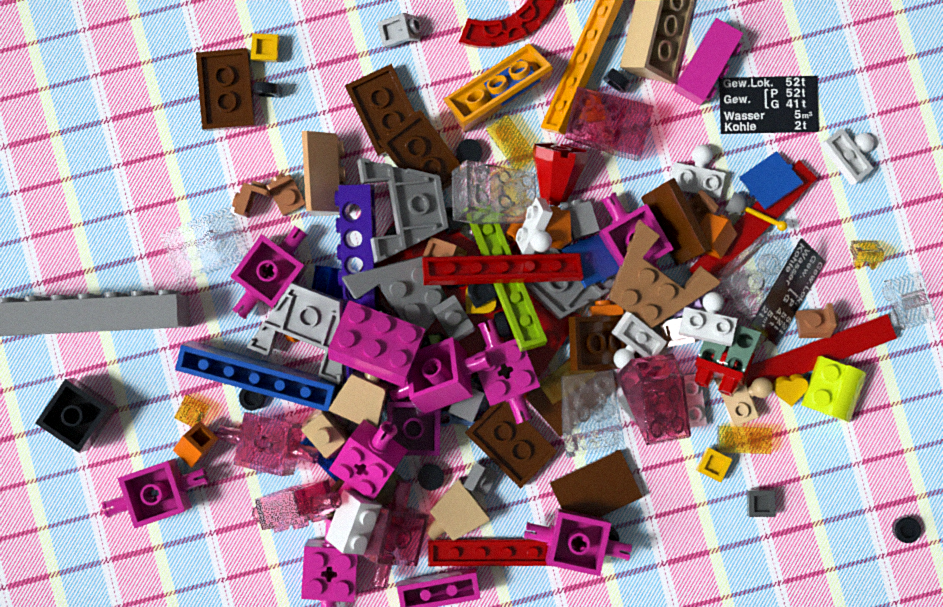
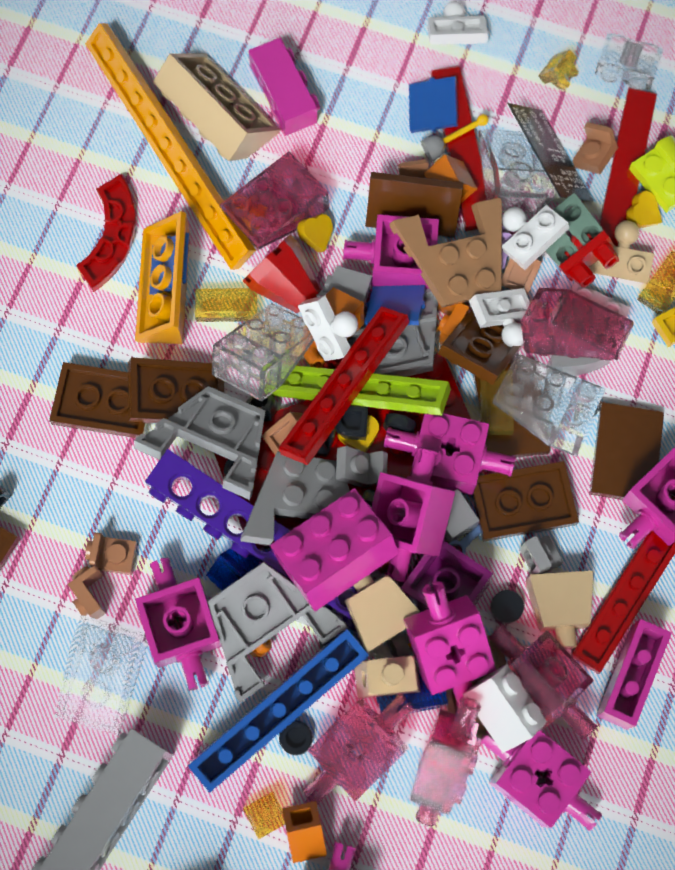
camera: 60 degrees left, 15 degrees down
(322, 171) = (120, 499): light nougat slope -> none
(399, 29) = (36, 334): light grey bracket -> none
(469, 150) = (202, 348): black tile -> none
(610, 166) = (316, 231): none -> yellow tile
(617, 80) = (239, 173): black tile -> none
(696, 177) = (383, 162): white plate -> none
(768, 104) = (360, 66): black sticker -> none

